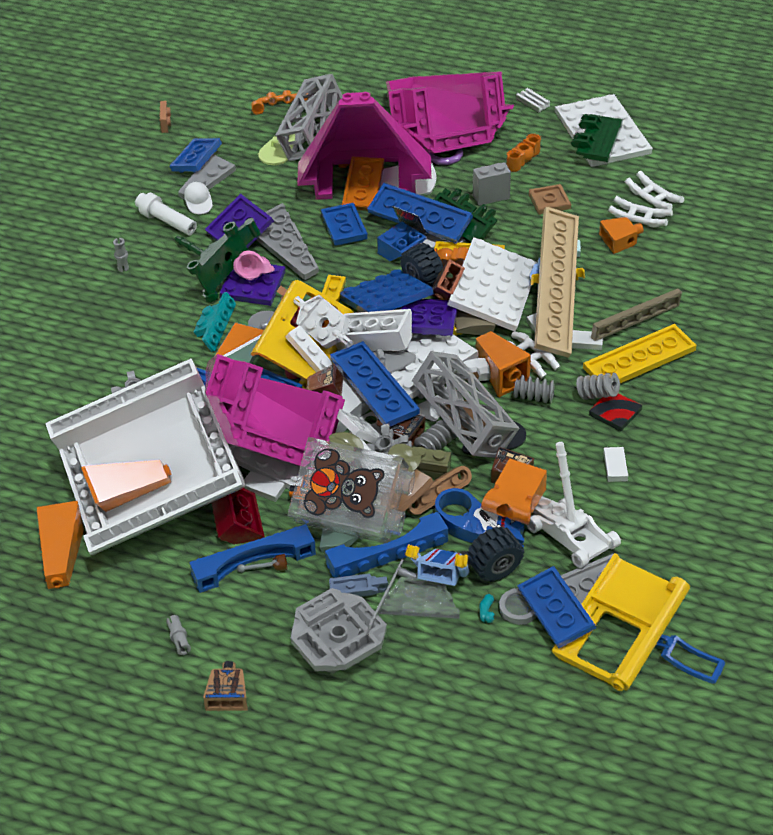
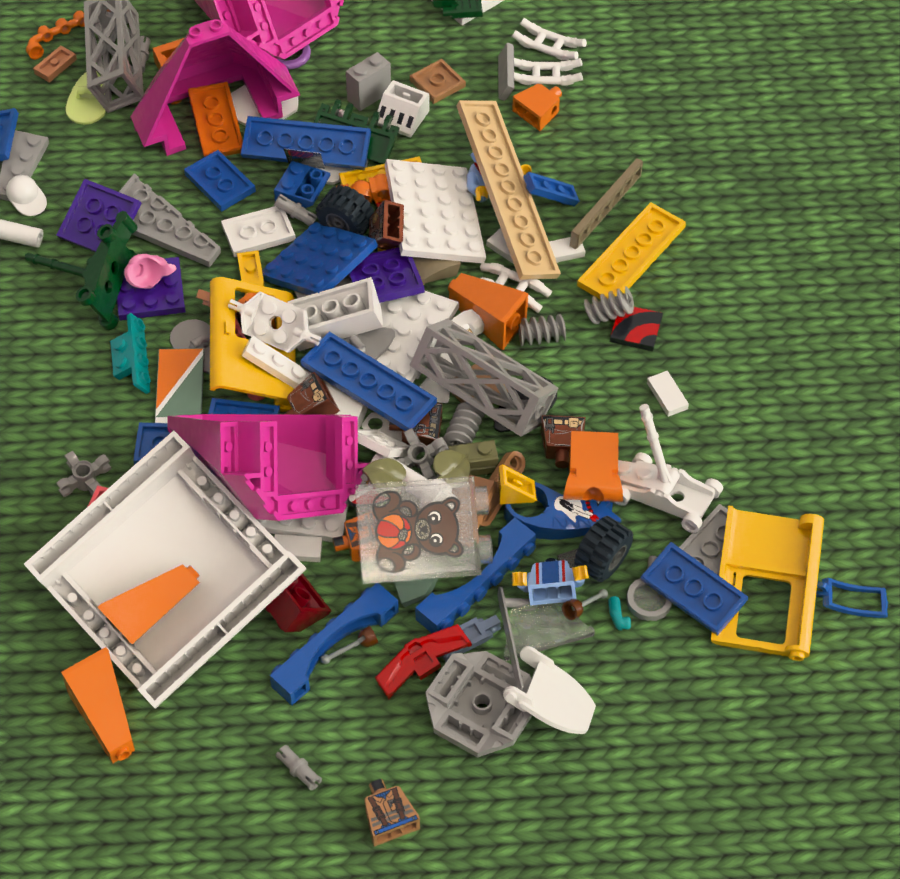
camera: 25 degrees left, 10 degrees up
(267, 119) = (55, 63): none -> nougat plate
(310, 586) = (420, 657): none -> red plate
(354, 264) = (258, 230): none -> white plate
(387, 256) = (295, 210): none -> light grey pin
(396, 645) = (552, 695): none -> white piece
(446, 487) = (515, 487): none -> yellow slope
(449, 590) = (577, 605): none -> reddish brown hinge
(510, 208) = (405, 105): none -> white slope
(523, 152) = (381, 28): orange piece -> none
(594, 292) = (551, 189): none -> blue plate
(606, 204) = (506, 71): none -> light grey tile

